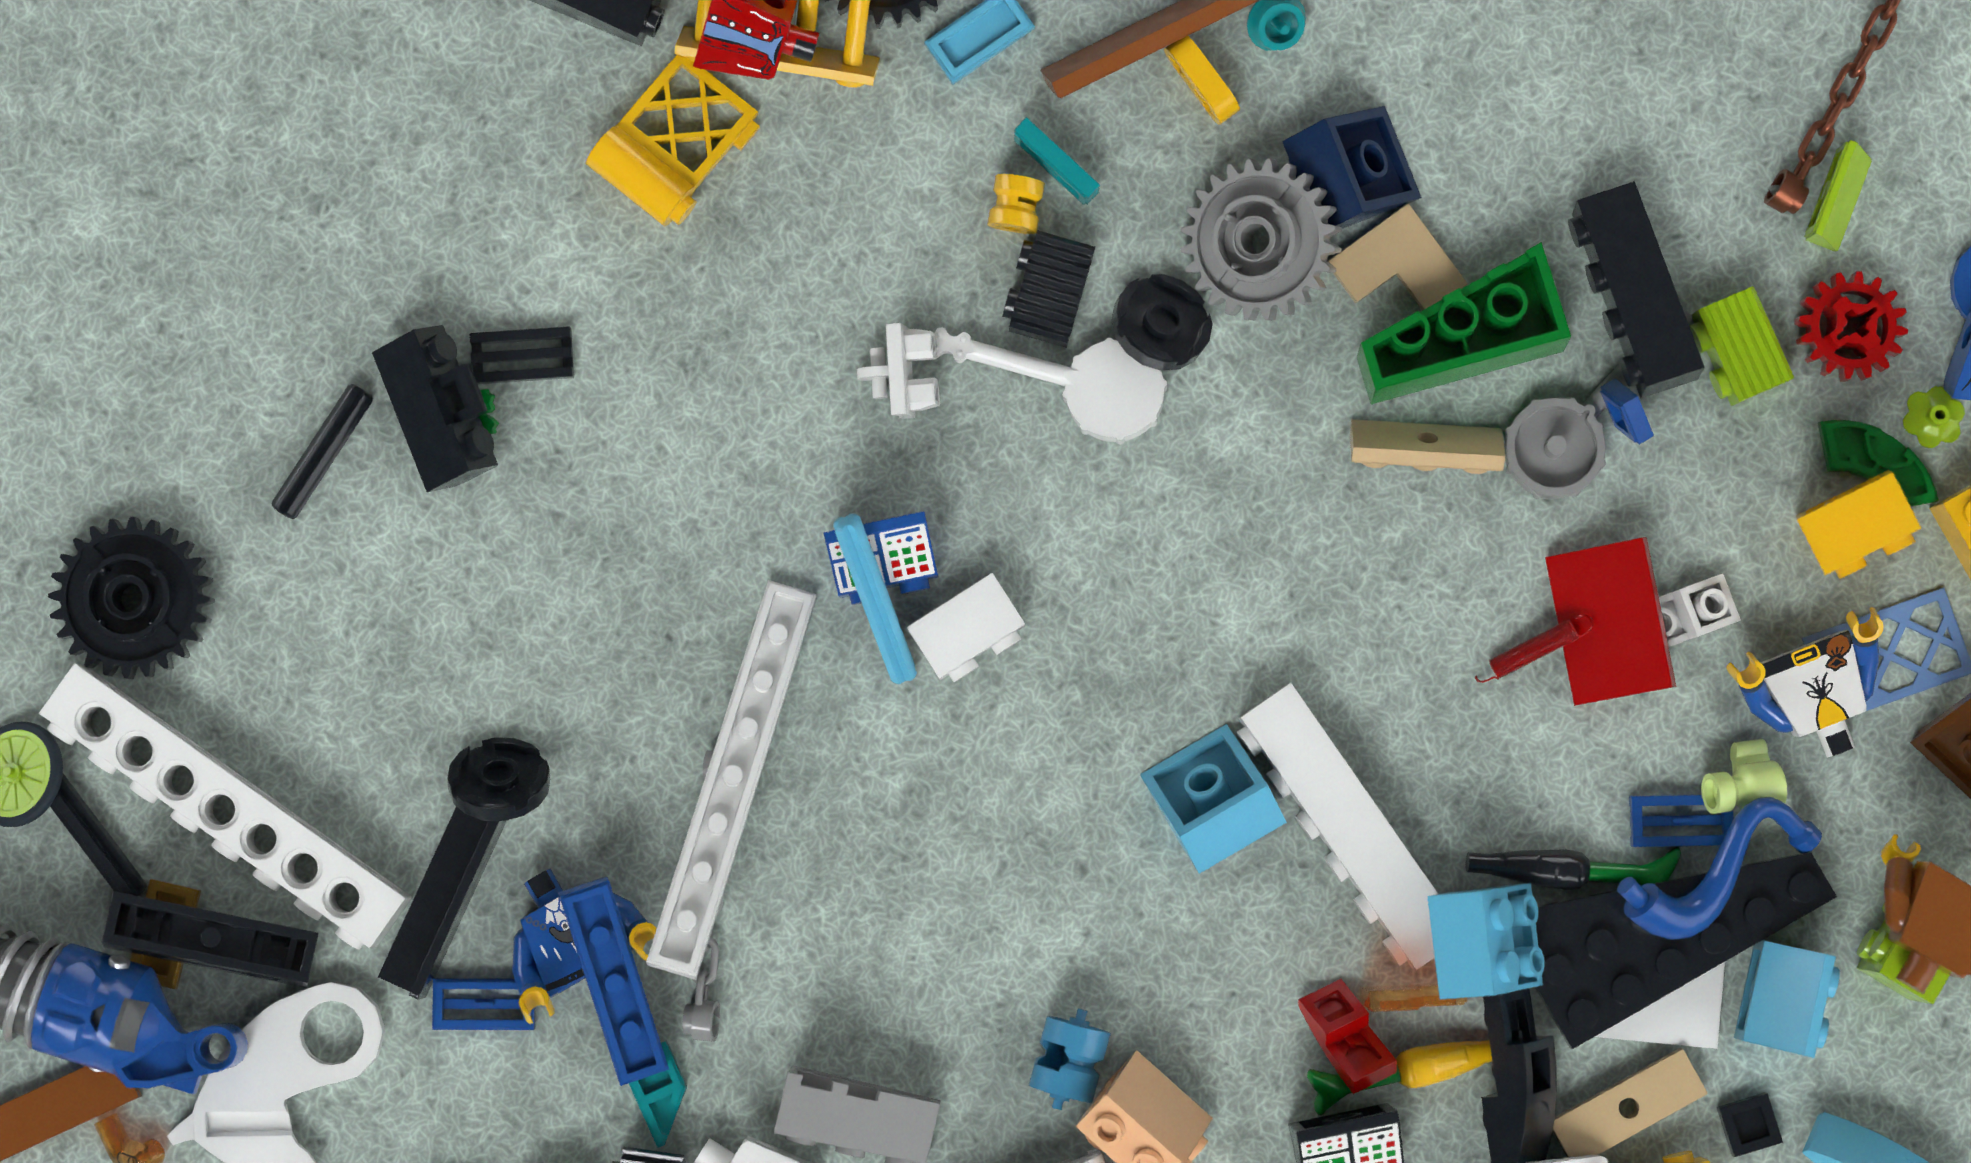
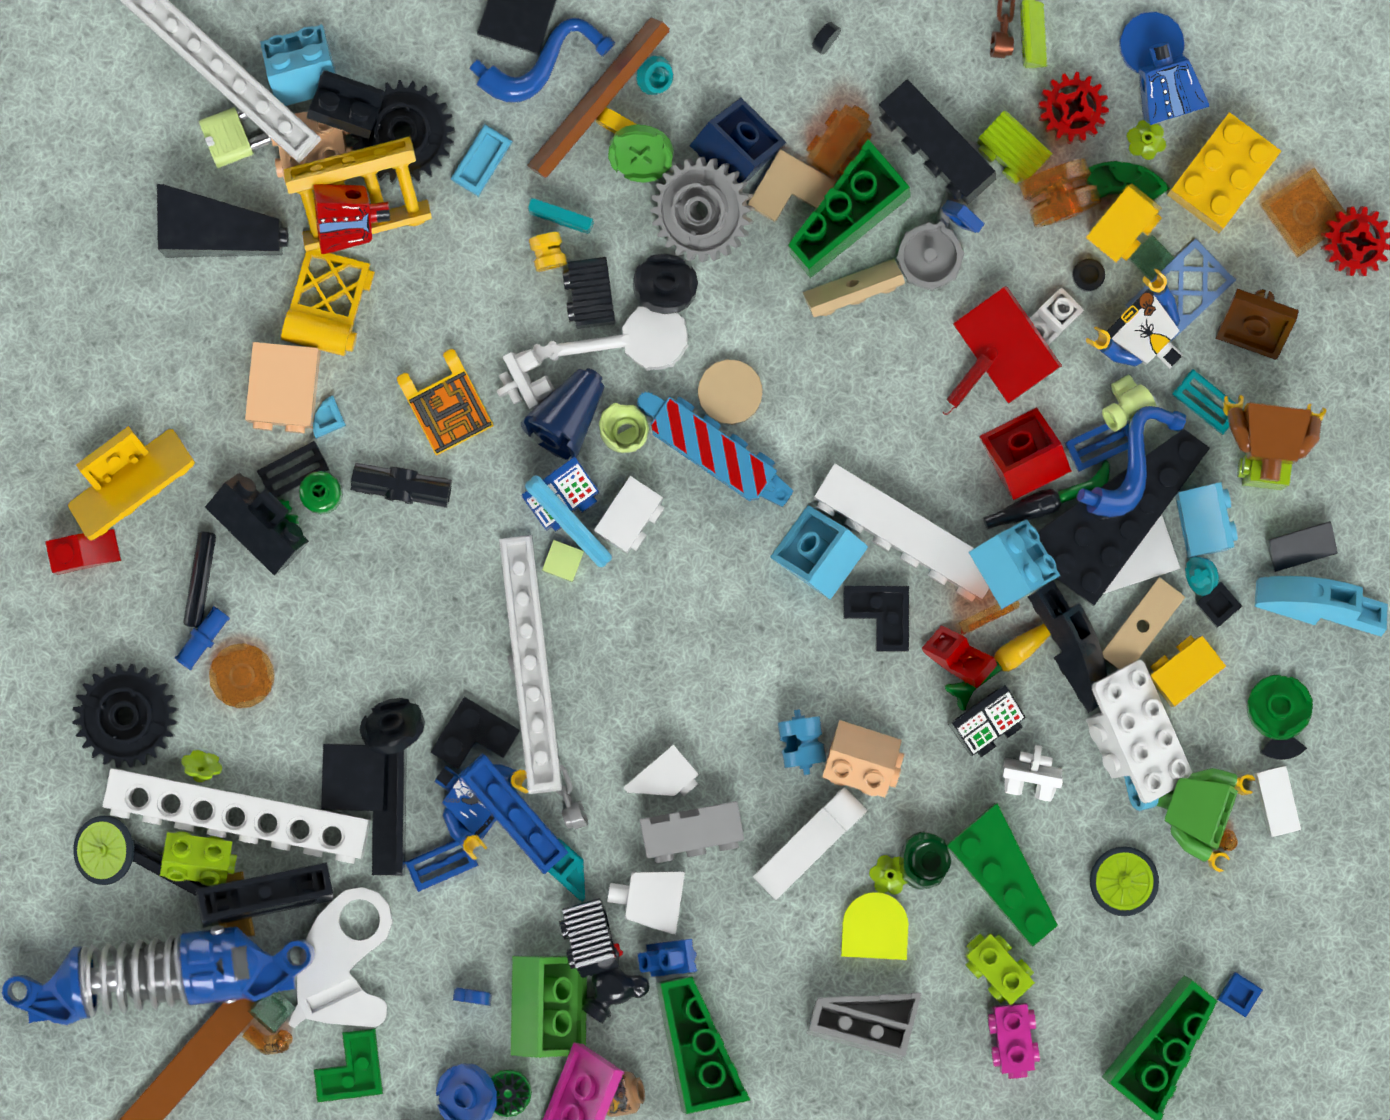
camera: 25 degrees left, 0 degrees up
(140, 845) = (197, 858): none -> lime brick
(151, 1109) = (272, 1011): none -> clear green tile
(174, 339) = (80, 553): none -> red slope
(207, 715) = (201, 765): none -> lime plant
(280, 260) = (125, 477): none -> yellow bracket
(288, 535) = (202, 638): none -> blue pin
(321, 613) = (241, 676): none -> clear orange tile
(412, 829) = (353, 778): none -> black tile
(558, 231) = (282, 387): none -> light nougat brick
(561, 411) = (324, 503): none -> green head
(602, 303) = (327, 418): none -> medium azure tile
(611, 826) = (471, 725): none -> black plate
(663, 443) = (401, 485): none -> black piece
(778, 364) = (447, 409): none -> flag
(844, 650) = (563, 561): none -> yellowish green tile
(853, 1021) = (665, 776): none -> white slope
(940, 445) = (566, 414): none -> dark blue cone
(1017, 520) = (632, 438): none -> yellowish green hair
(1126, 588) = (713, 450): none -> dark azure hinge
(1186, 515) = (730, 392): none -> tan tile
(1208, 121) = (640, 153): none -> bright green tile
(1276, 920) = (886, 605): none -> black plate
(1511, 220) = (845, 133): none -> clear orange brick
(1542, 74) = (826, 37): none -> black tile
(1569, 788) = (1025, 453): none -> red slope
(1744, 1073) = (1201, 575): none -> teal hat
(1768, 573) = (1088, 275): none -> black tile
(1781, 436) = (1058, 190): none -> clear orange wheel
(1838, 789) = (1195, 408): none -> teal tile
(1870, 588) = (1151, 256): none -> clear green tile
(1905, 1094) = (1302, 546): none -> black slope

